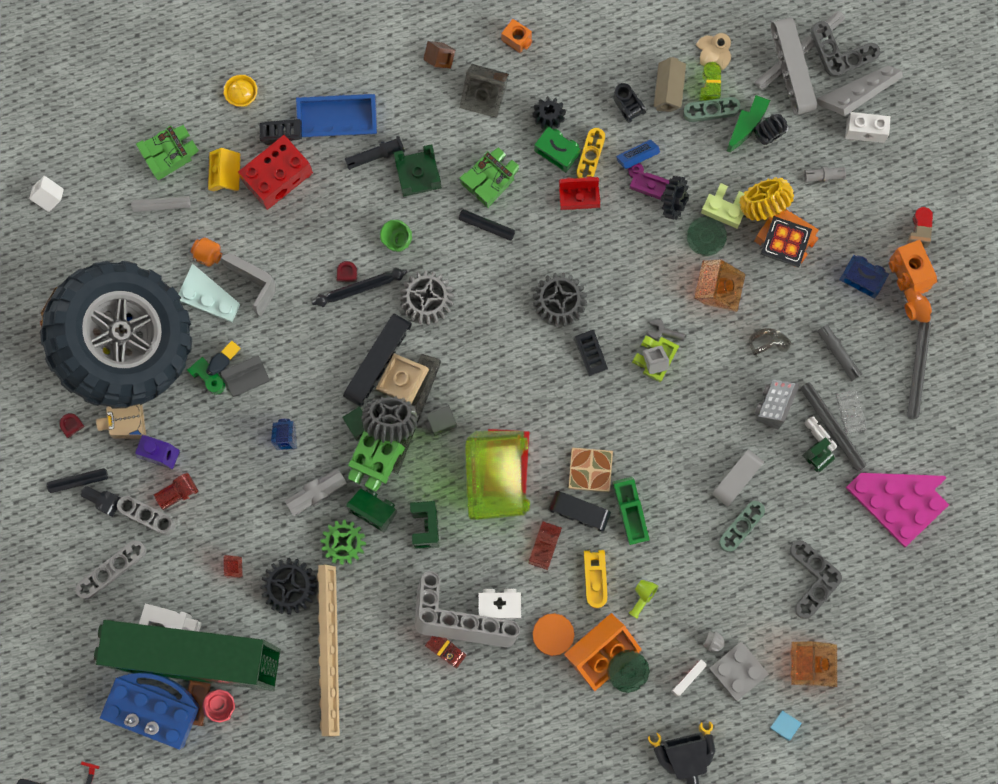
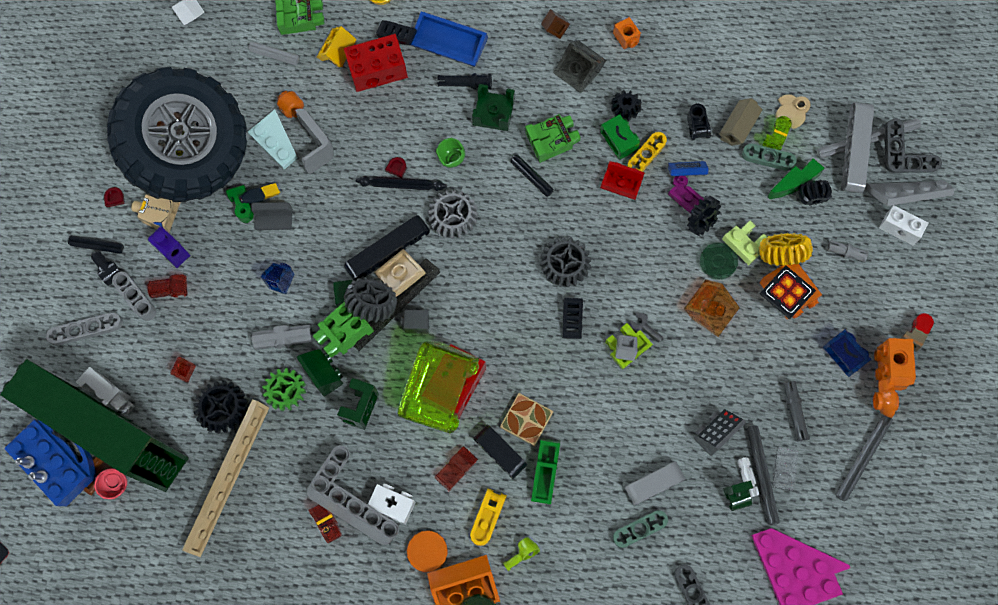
camera: 25 degrees right, 5 degrees down
(778, 338) = (746, 377): clear smoke piece -> none

